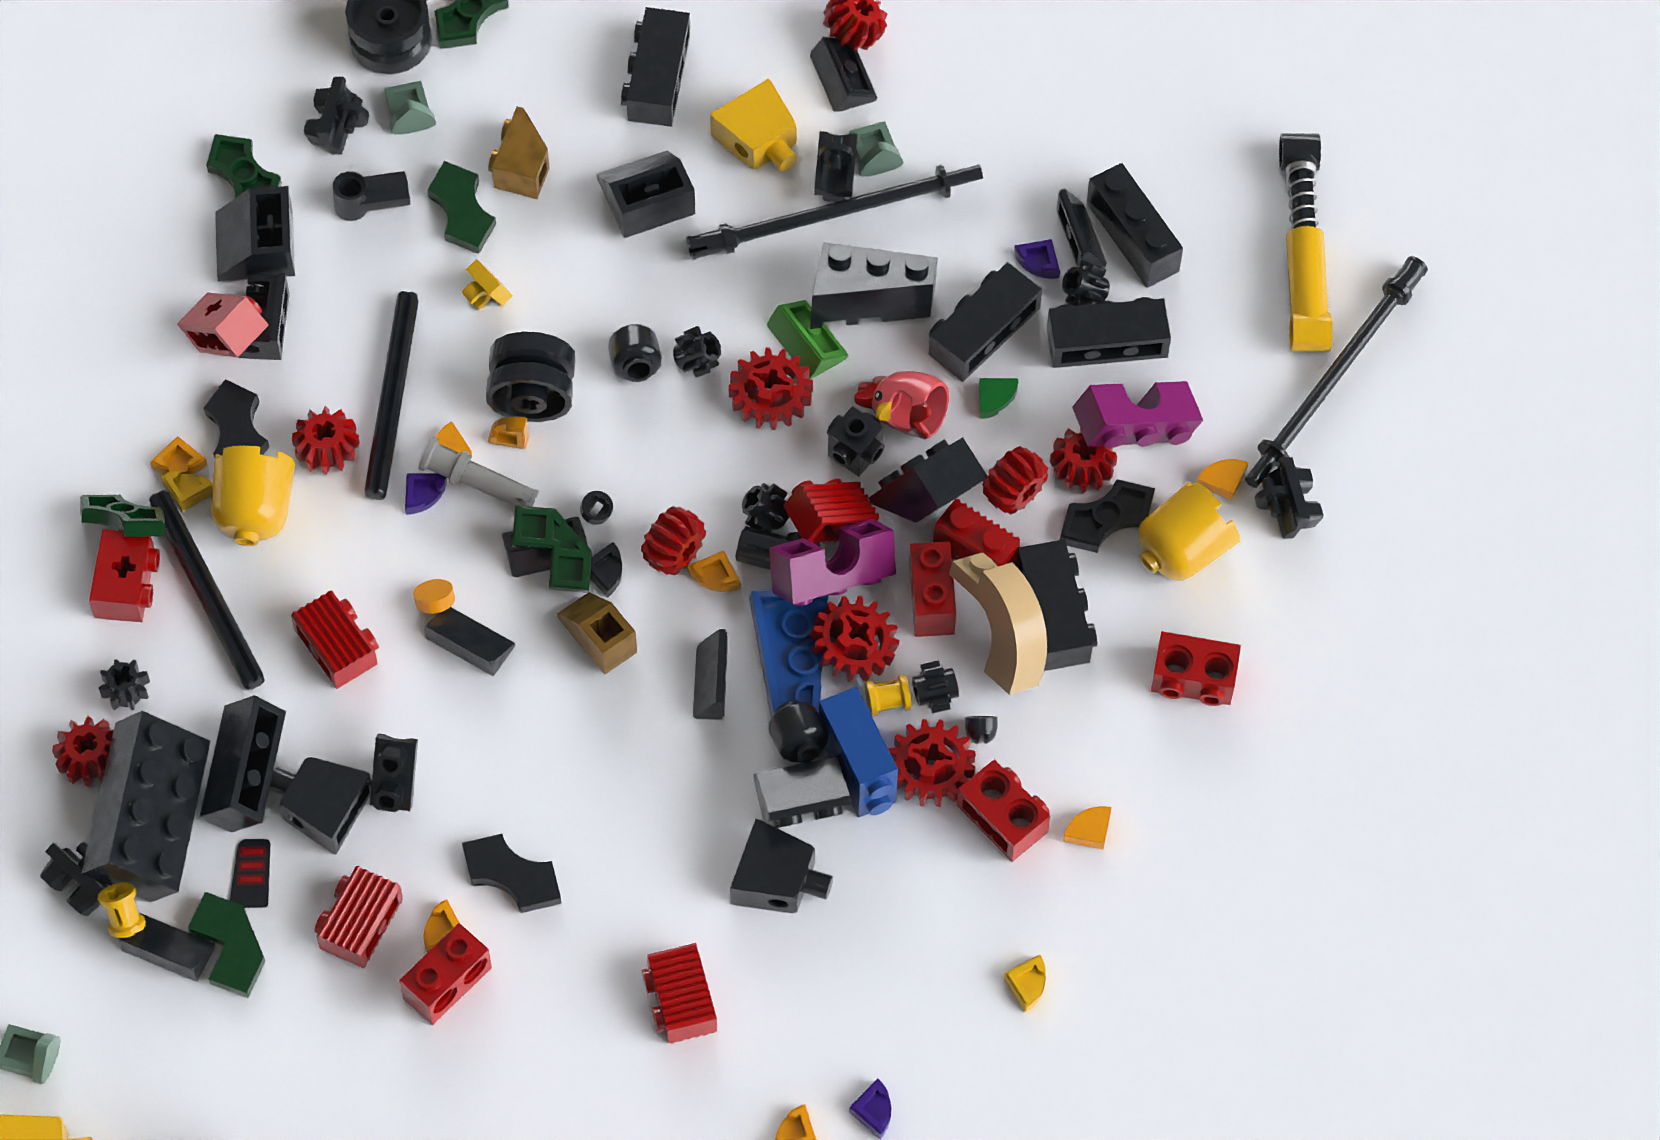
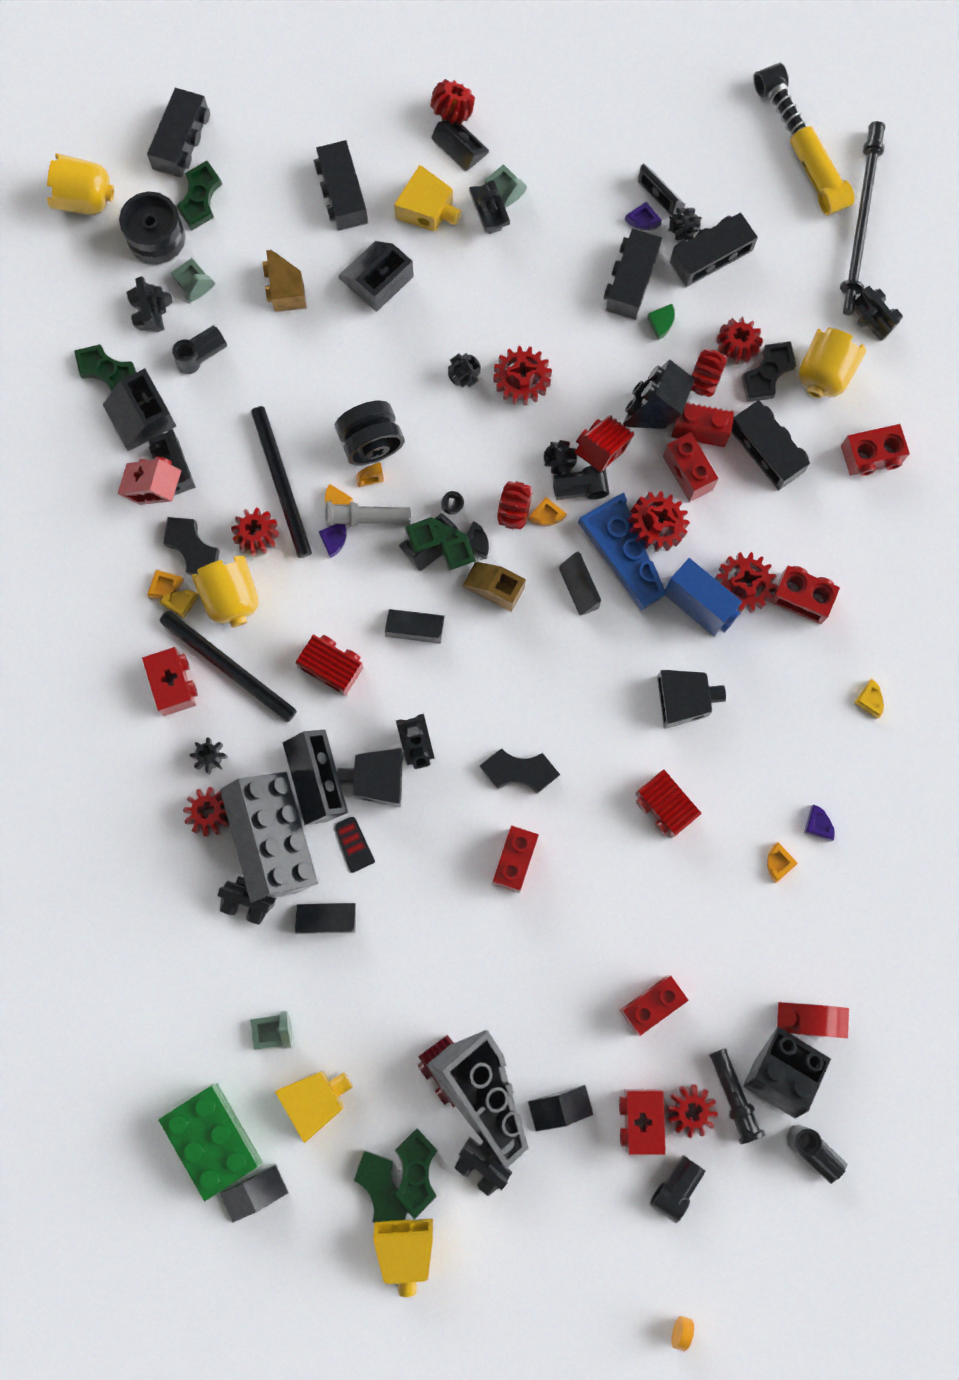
camera: 25 degrees left, 15 degrees up
(121, 910) = (287, 913): yellow bush -> none
(122, 515) = (155, 642): dark green tile -> none
(229, 926) = (376, 903): dark green tile -> none
(358, 916) = (440, 845): red brick -> none
(434, 596) = (378, 607): light orange tile -> none
(439, 924) = (494, 827): light orange tile -> none
(467, 221) = (251, 325): dark green tile -> none
(484, 287) = (305, 382): yellow tile -> none
(634, 352) = (424, 387): black head -> none
(728, 237) = (444, 284): black bar -> none
(798, 731) = (661, 601): black head -> none
(801, 790) = (681, 639): slope -> none
(815, 347) = (524, 330): bright green slope -> none
(855, 440) = (594, 387): black brick -> none
(862, 558) = (614, 491): magenta arch -> none
(870, 284) = (552, 278): black wedge -> none
(888, 695) = (697, 548): yellow bush -> none
(906, 402) = (612, 348): coral piece -> none
(935, 687) = (724, 531): black gear -> none
(981, 725) = (762, 545): black hinge -> none
(1014, 618) = (756, 463): tan arch -> none
(1089, 827) = (859, 581): light orange tile -> none
(1134, 225) = (694, 170): black brick -> none
(1161, 416) = (755, 303): magenta arch -> none
(1223, 477) = (827, 316): light orange tile -> none

